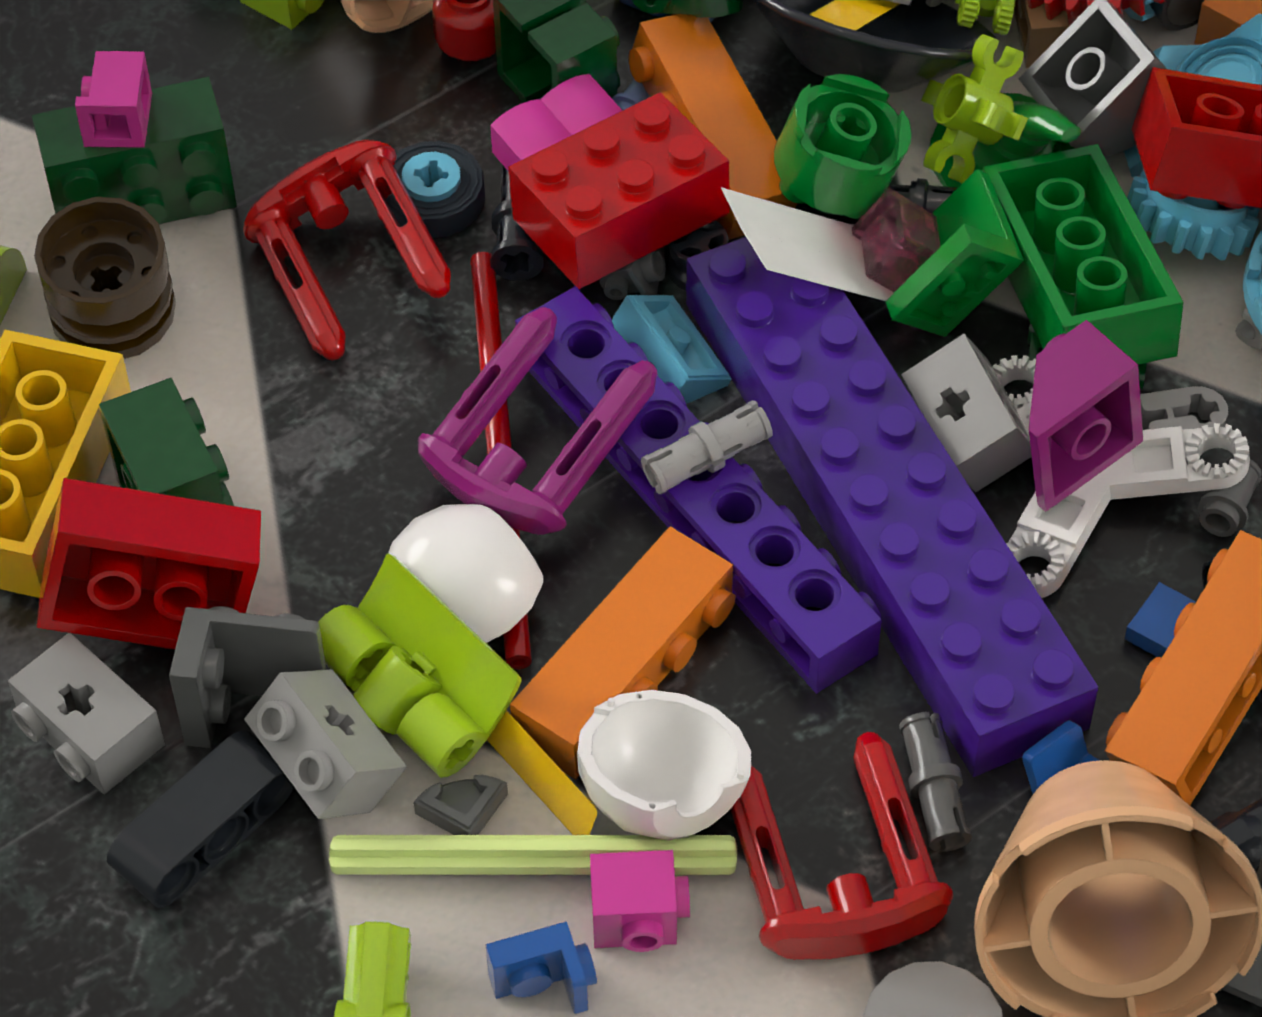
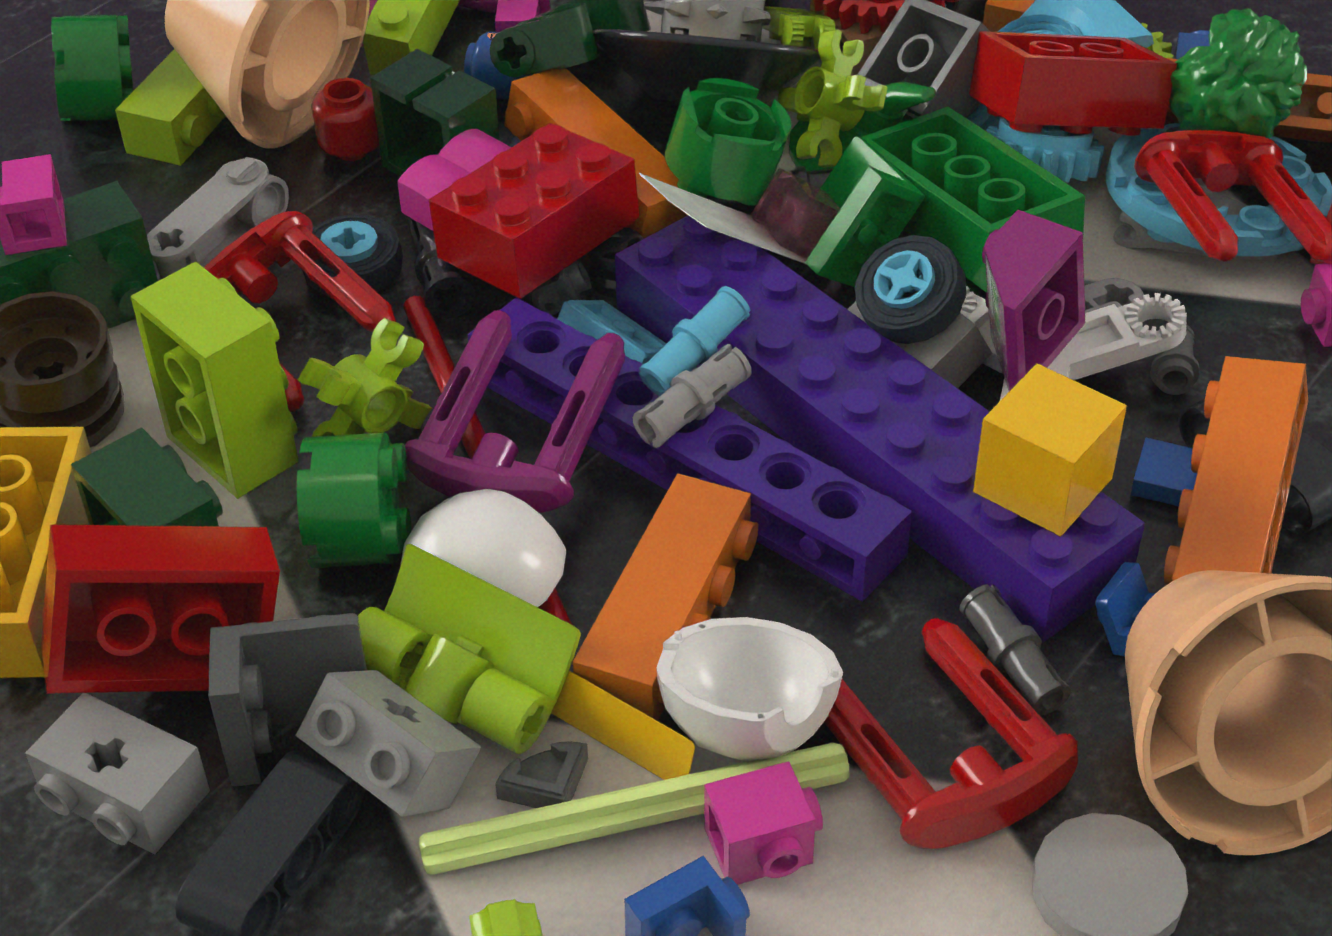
camera: 15 degrees left, 10 degrees down
(258, 327) = (217, 377): none -> lime brick
(304, 123) = (216, 215): none -> light grey piece
(356, 485) = (353, 500): none -> green brick
(398, 368) = (367, 387): none -> lime pin
(728, 386) = (695, 339): none -> medium azure pin
(968, 352) = (910, 266): none -> black wheel
(1015, 597) = (1048, 448): none -> yellow head

